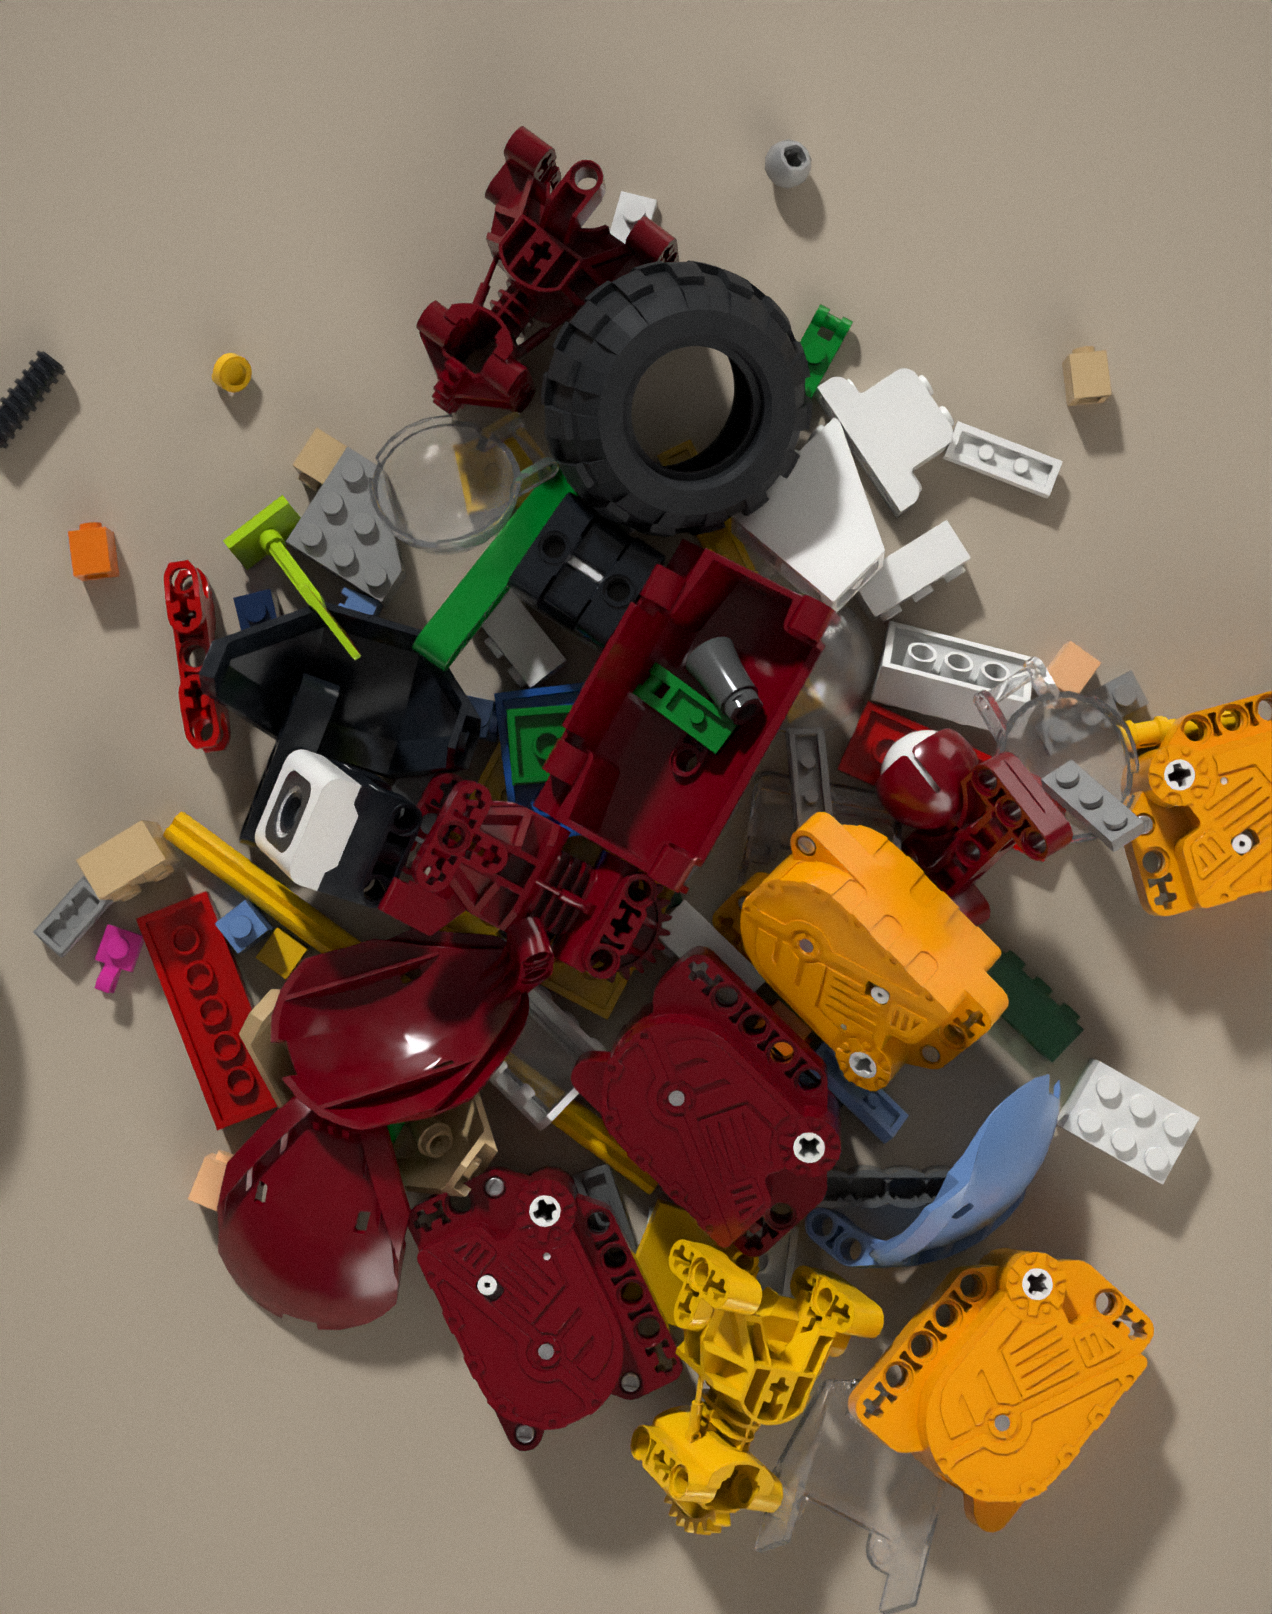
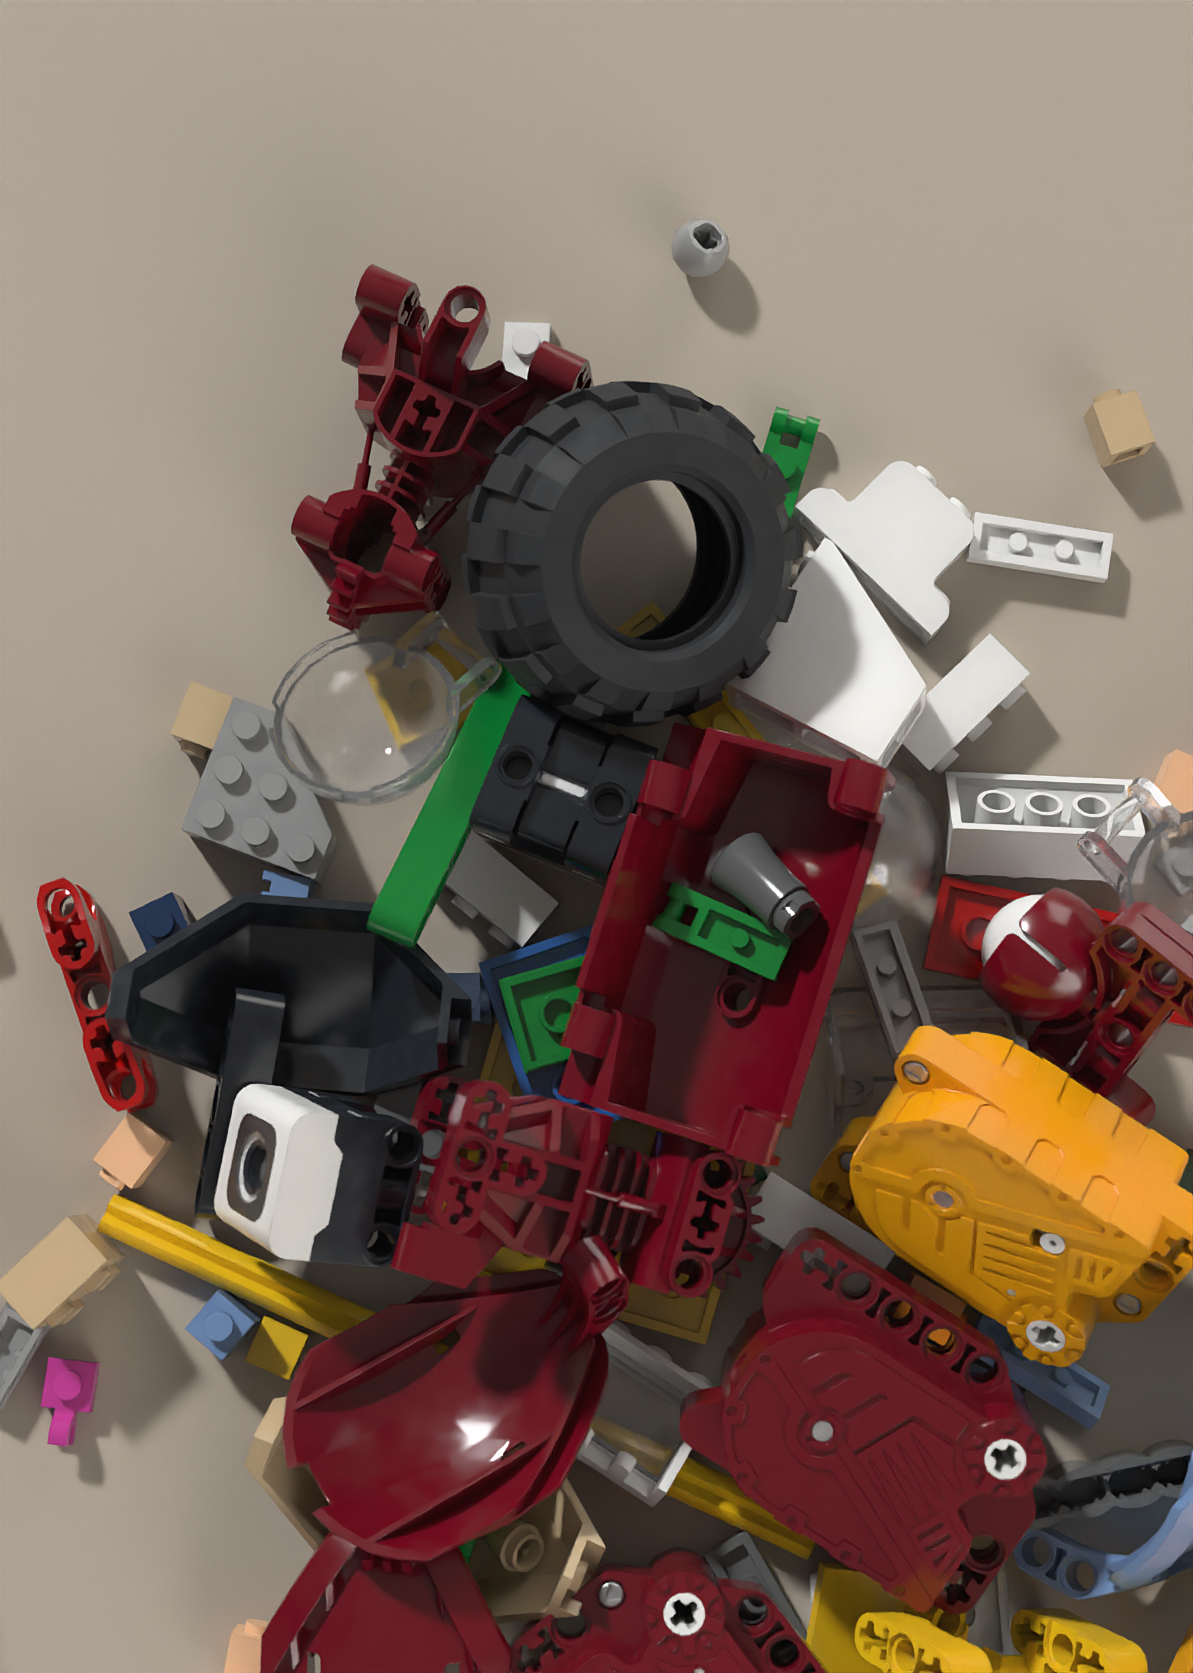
camera: 10 degrees left, 5 degrees down
(200, 782) = (132, 1152): none -> light nougat brick
(207, 1005) = (196, 1436): red plate -> none
(231, 372) = (72, 636): yellow tile -> none
(267, 535) = (155, 827): lime piece -> none

